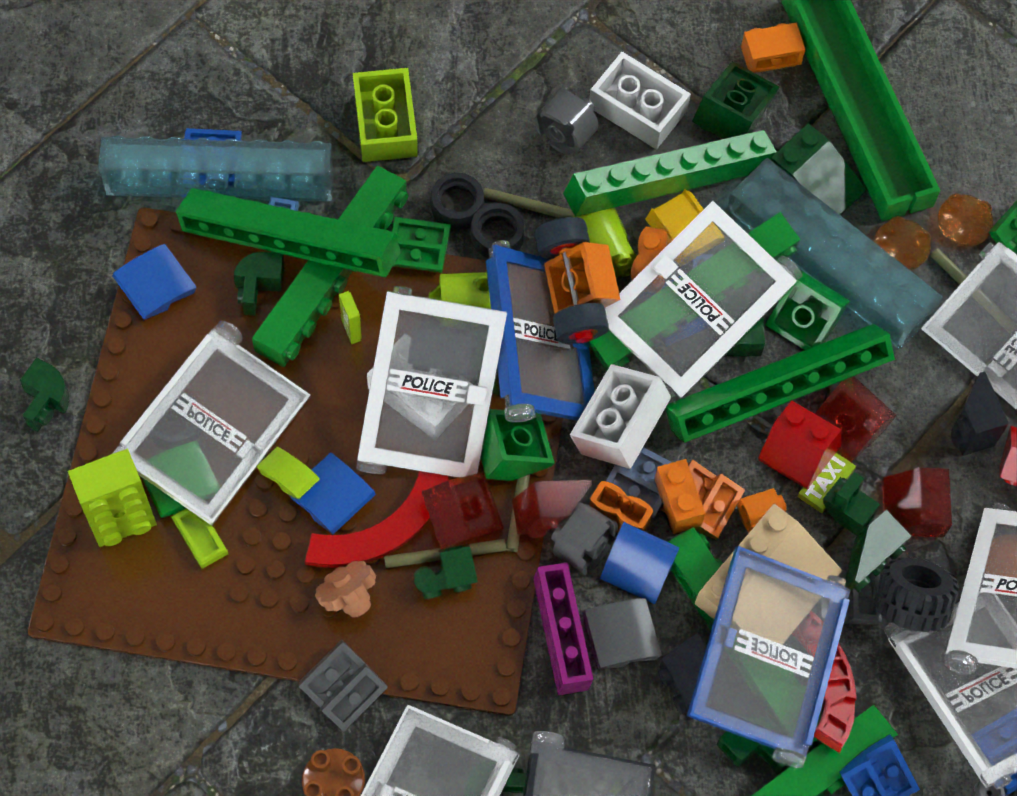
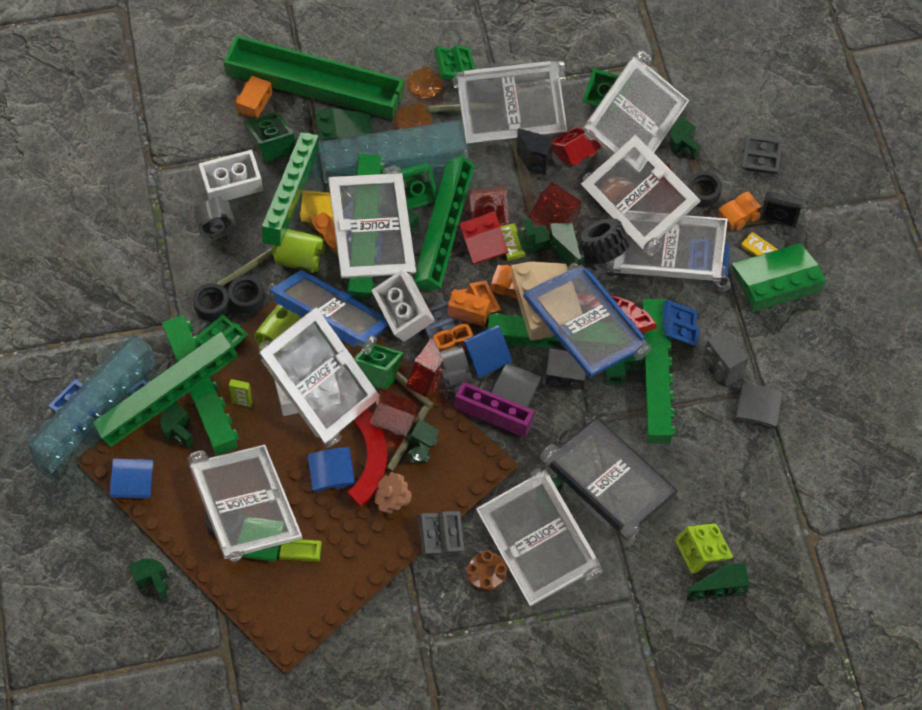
camera: 50 degrees left, 5 degrees down
(113, 498) = (255, 568): lime brick -> none
(288, 472) = (304, 480): lime slope -> none
(385, 115) = (131, 301): lime brick -> none
(578, 279) = (317, 269): brick -> none

